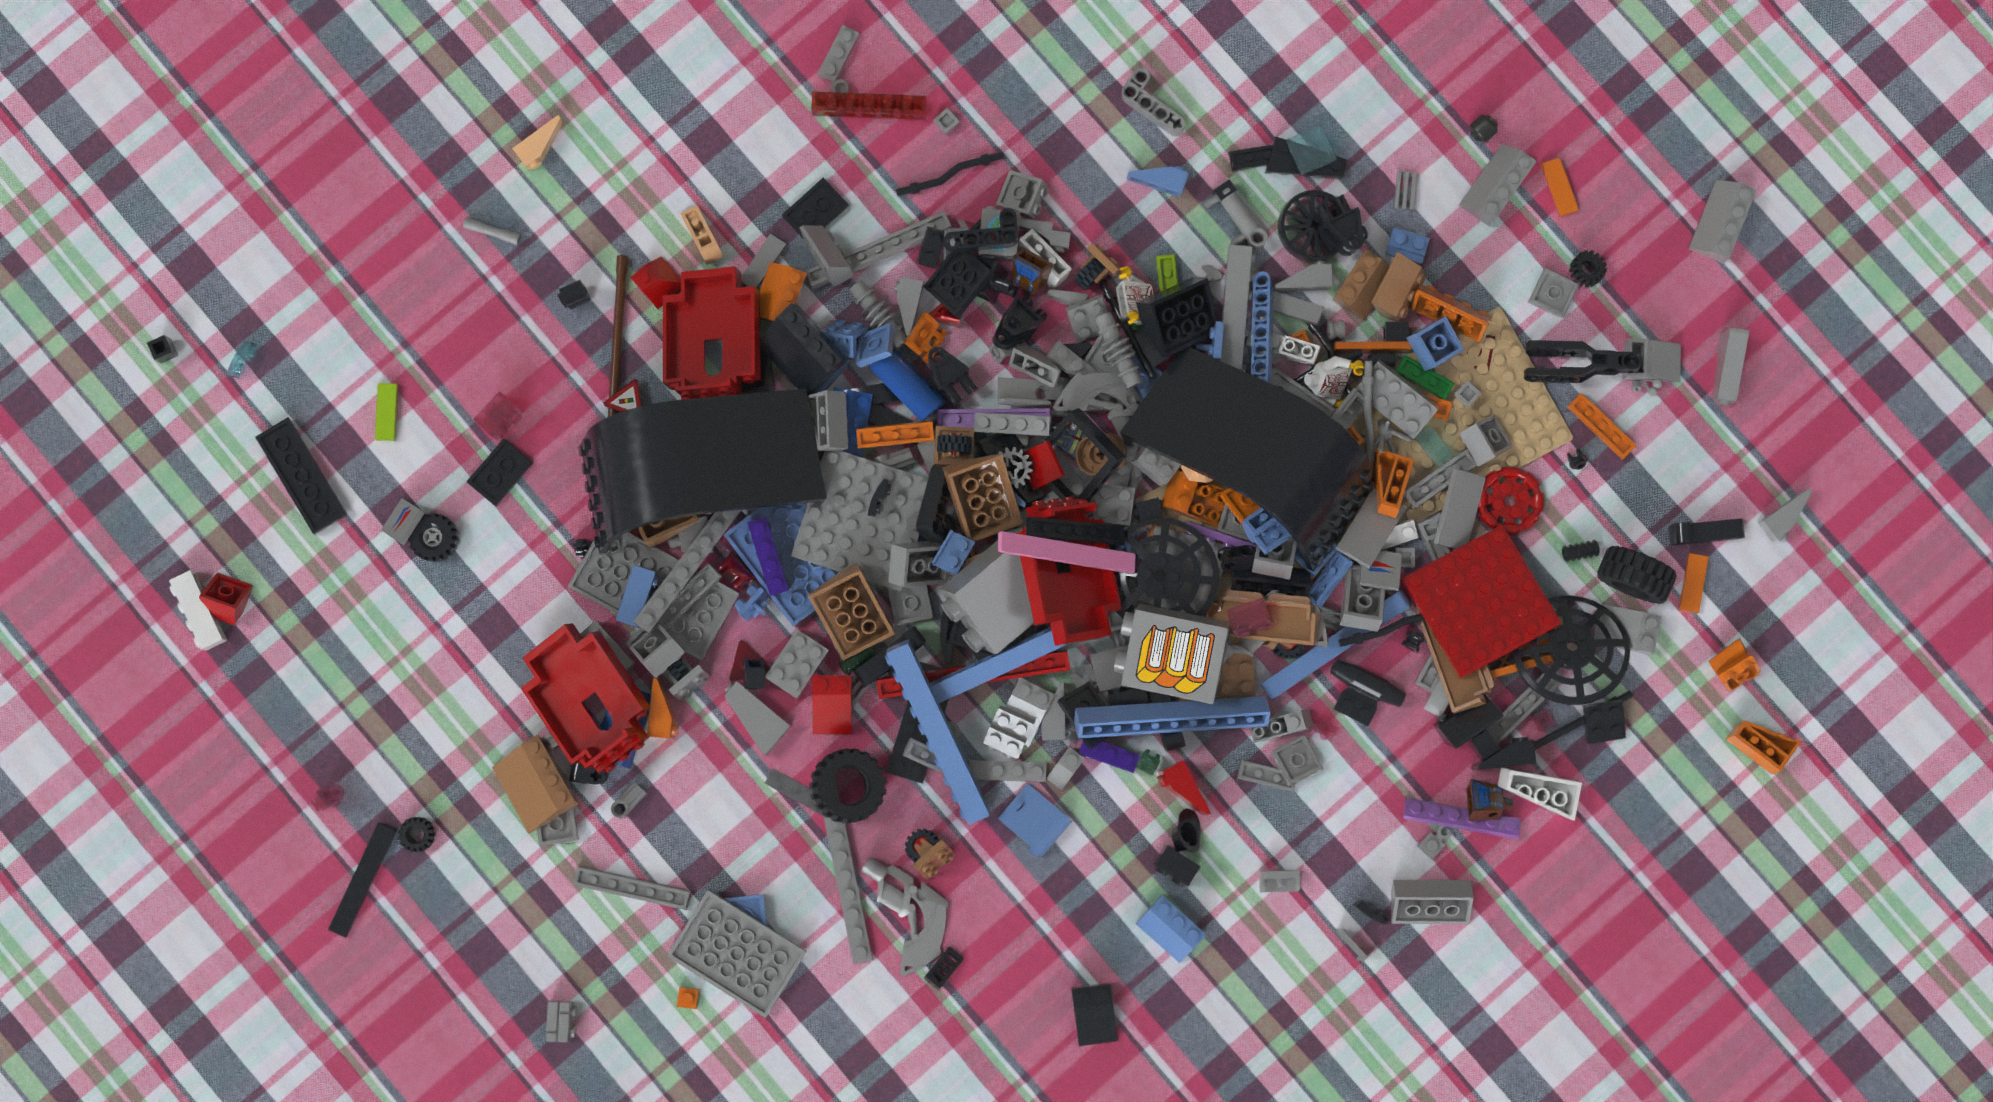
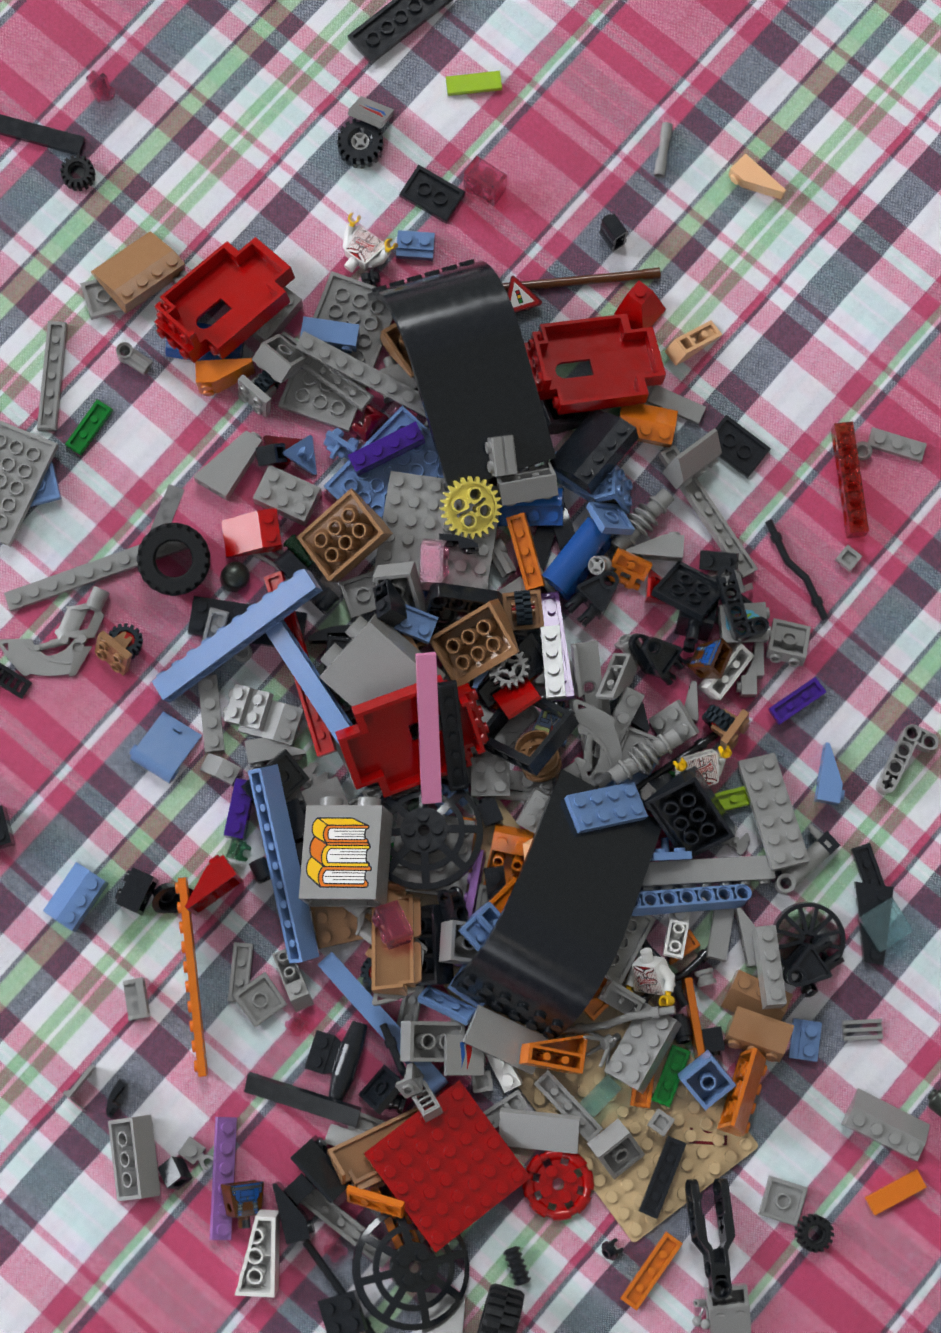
camera: 80 degrees right, 5 degrees down
(548, 549) = (363, 247): none -> white torso
(552, 498) = (415, 245): none -> medium blue plate
(582, 775) = (150, 317): black piece -> none
(692, 856) = (89, 427): none -> green tile
(756, 642) = (303, 454): none -> medium blue piece
(799, 440) = (501, 455): none -> light grey brick
(830, 485) = (462, 492): none -> light yellow gear
(871, 728) = (234, 576): none -> pearl dark grey hair
(894, 525) = (433, 560): none -> clear pink brick
(921, 367) = (595, 564): none -> light grey wheel
(932, 575) = (389, 604): none -> black slope
(1080, 196) = (797, 700): none -> dark purple plate
(1164, 395) = (605, 807): none -> medium blue plate
(1187, 237) = (773, 812): none -> light grey plate
(1218, 515) = (494, 880): none -> black plate
(1258, 822) = (192, 984): none -> orange plate
(1339, 266) = (769, 967): none -> light grey brick
(1399, 621) = (412, 1083): none -> light grey bracket
(1399, 731) = (302, 1099): none -> black tile
(1400, 653) = (381, 1089): none -> black plate
(1433, 609) = (433, 1111): none -> light grey slope
(1451, 864) = (175, 1173): none -> black panel
(1506, 673) = (375, 1201): none -> orange tile
(1518, 401) = (662, 1177): none -> black plate

